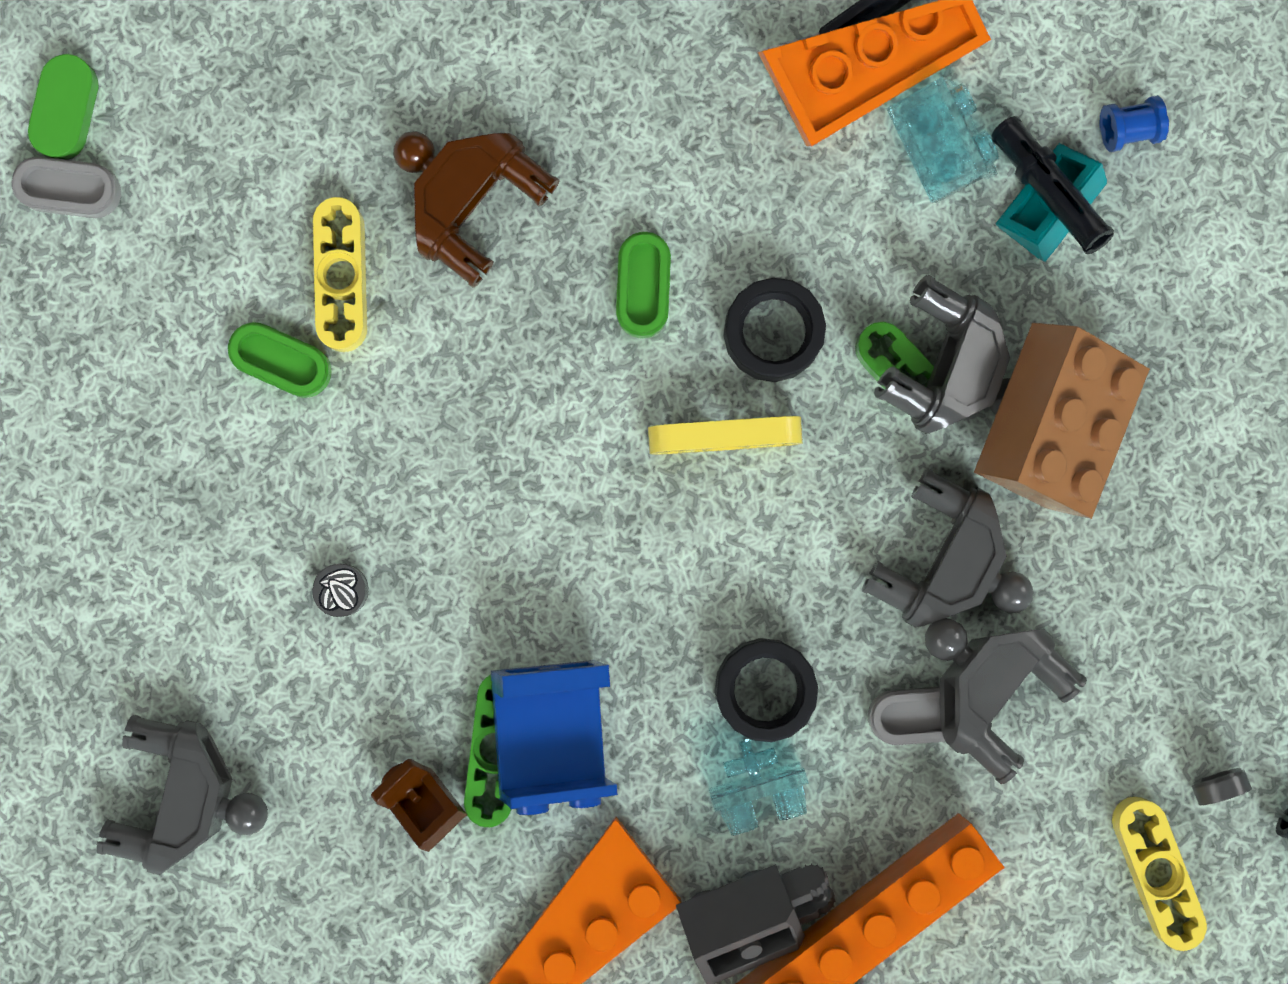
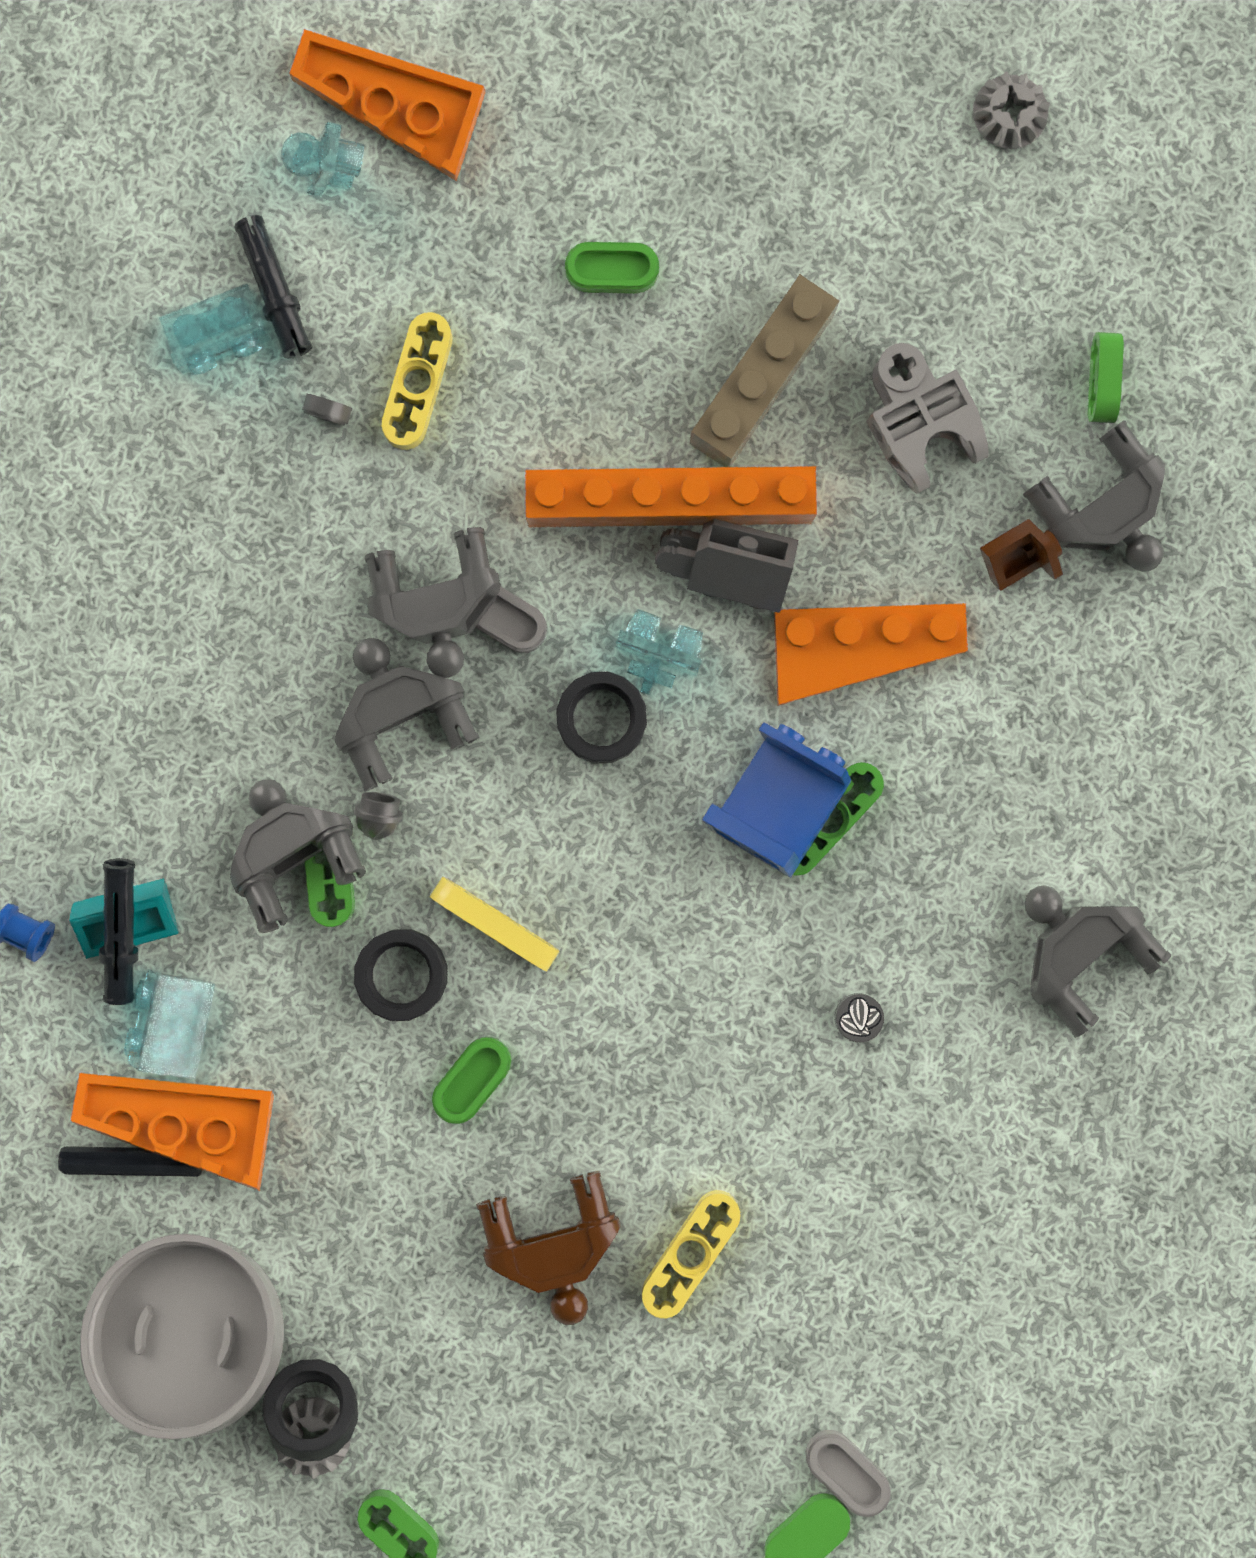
camera: 145 degrees left, 0 degrees up
(279, 359) = (781, 1223): bright green tile -> none
(419, 803) = (911, 820): reddish brown bracket -> none
(900, 455) = (378, 814): none -> flat silver plate
(1062, 419) = (242, 755): medium nougat brick -> none

